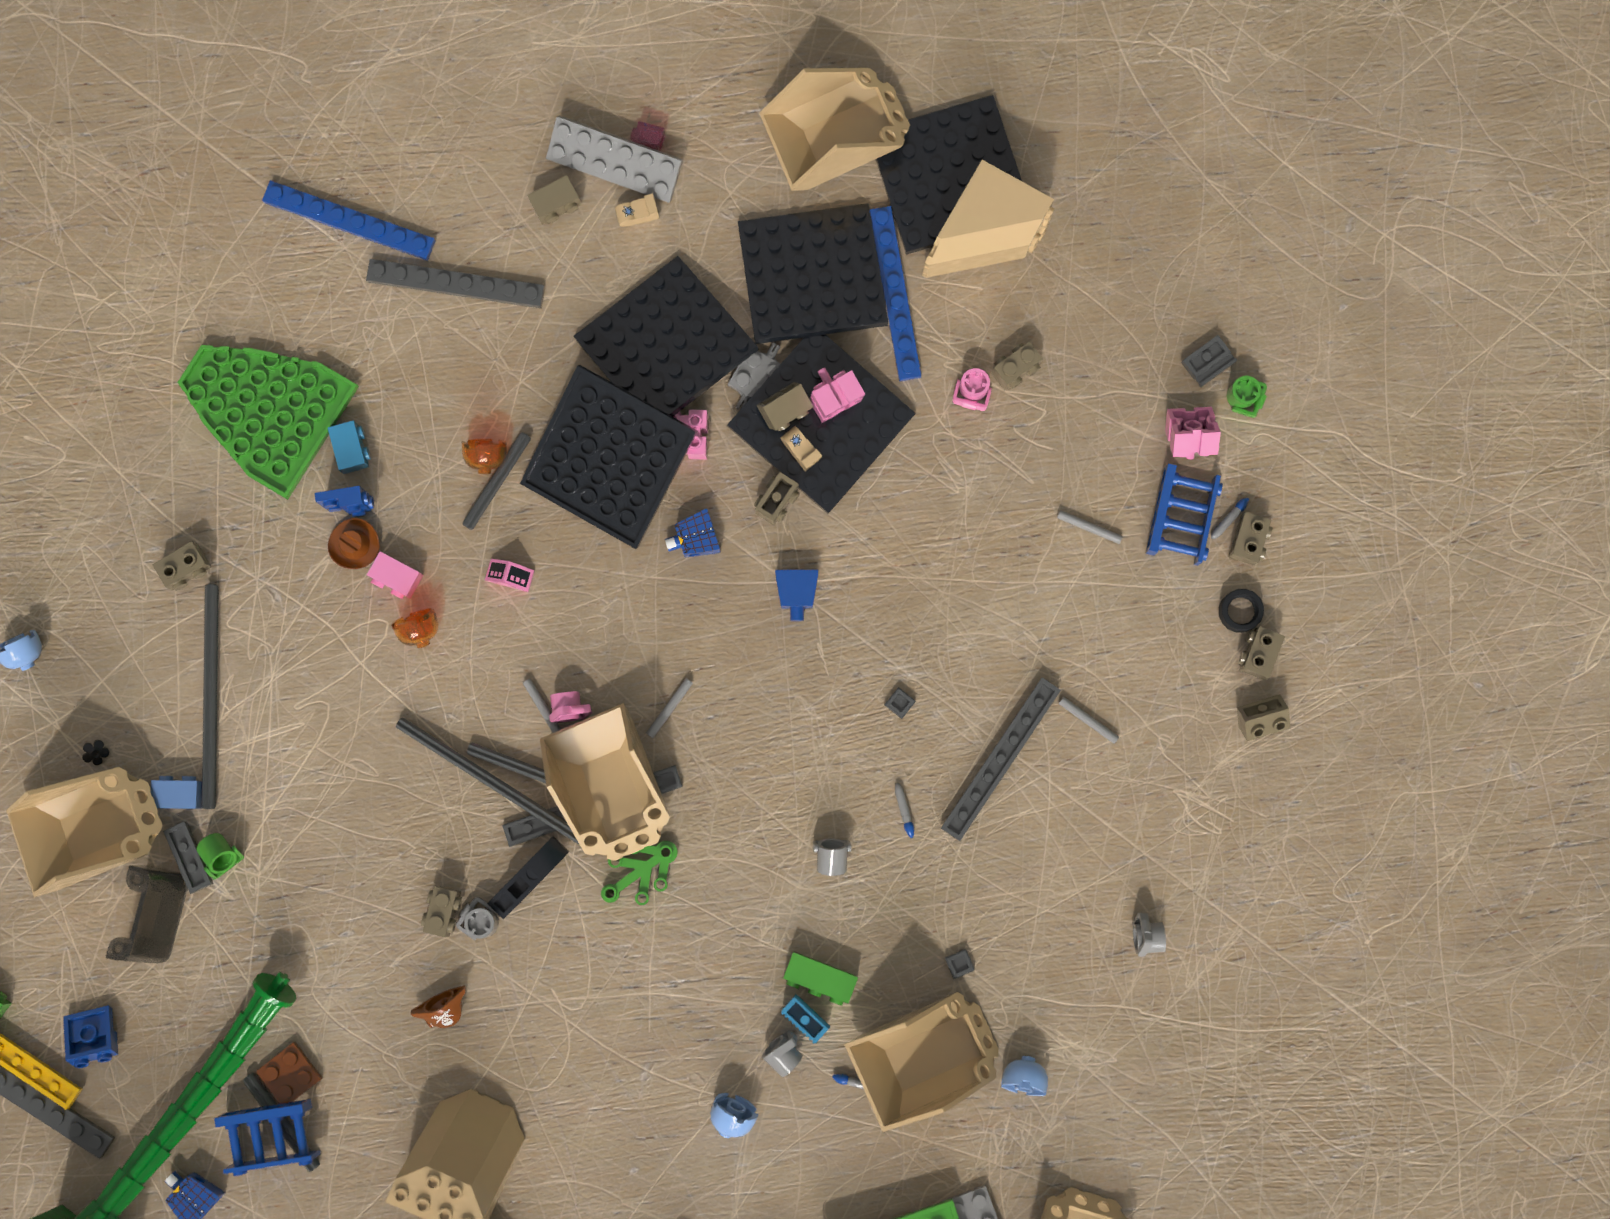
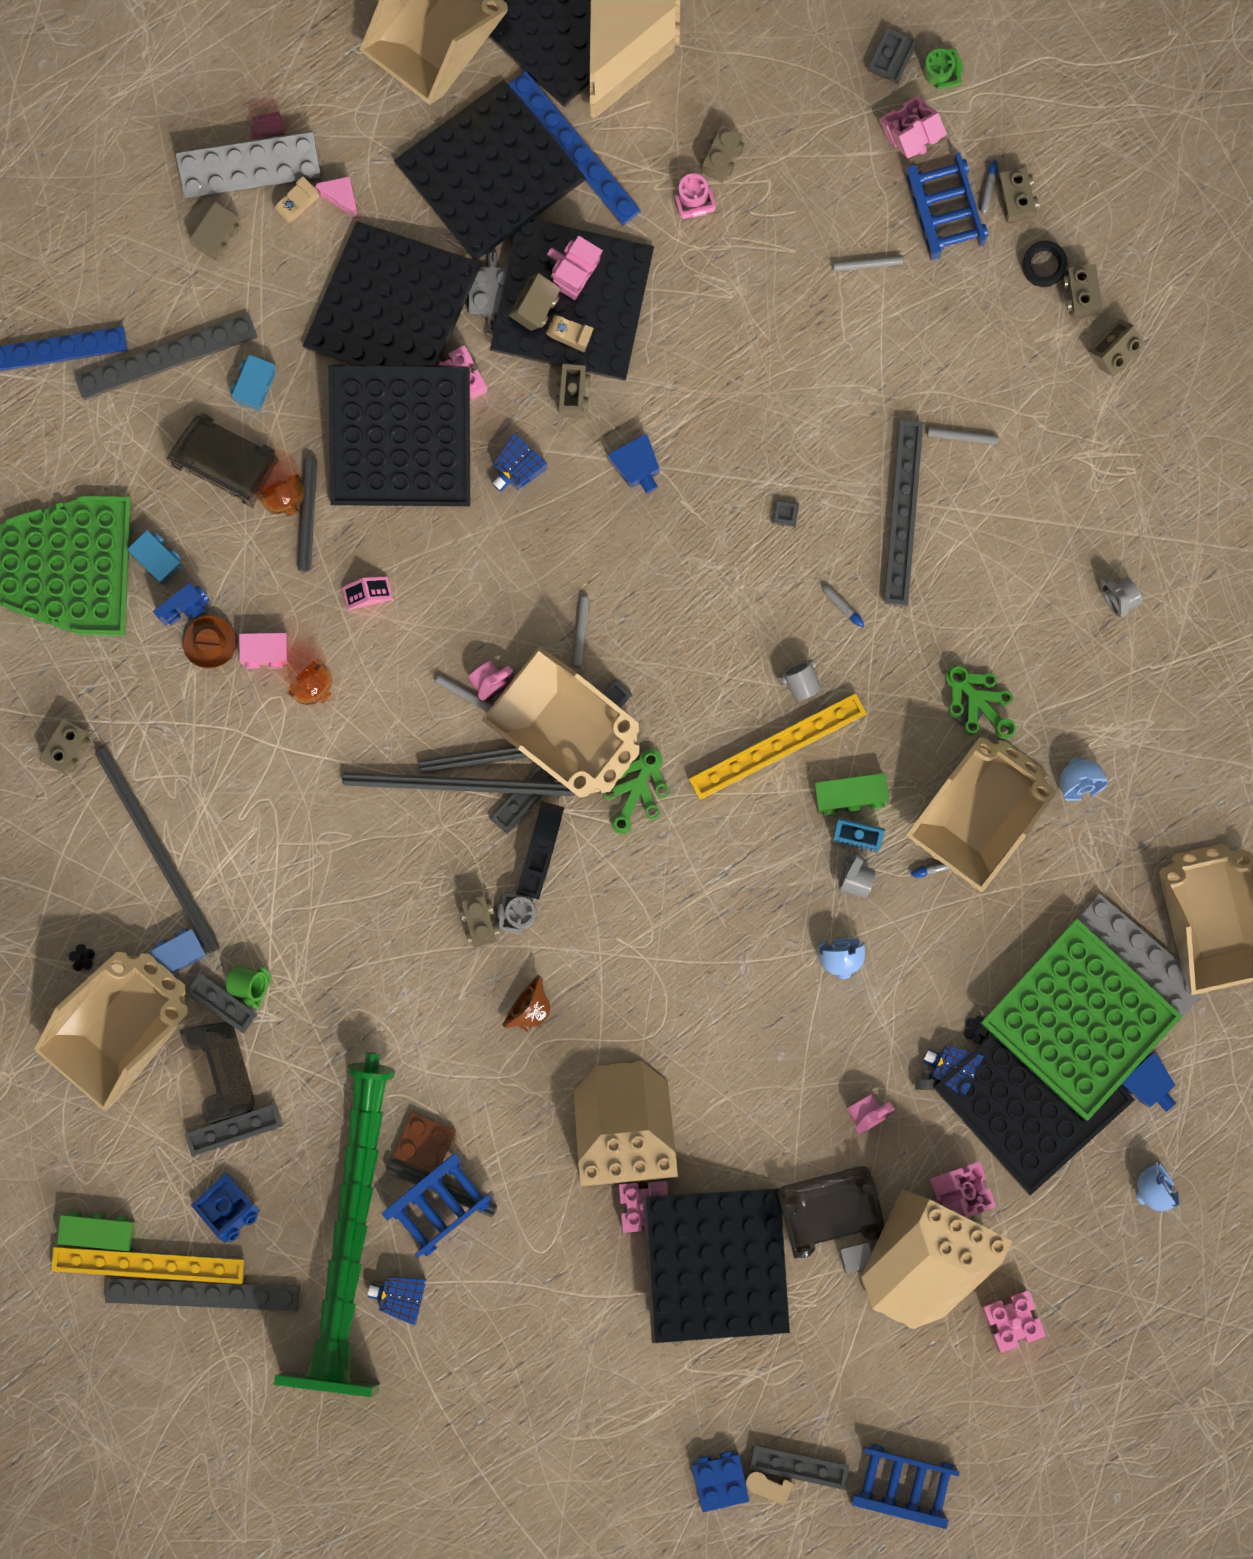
camera: 25 degrees left, 0 degrees up
(137, 973) = (233, 1130): none -> dark grey plate
(451, 395) = (223, 459): none -> clear smoke windscreen
(514, 344) = (253, 382): none -> dark azure brick
(677, 224) = (339, 193): none -> bright pink slope
(780, 901) = (777, 746): none -> yellow plate
(974, 956) = (978, 699): none -> bright green plant

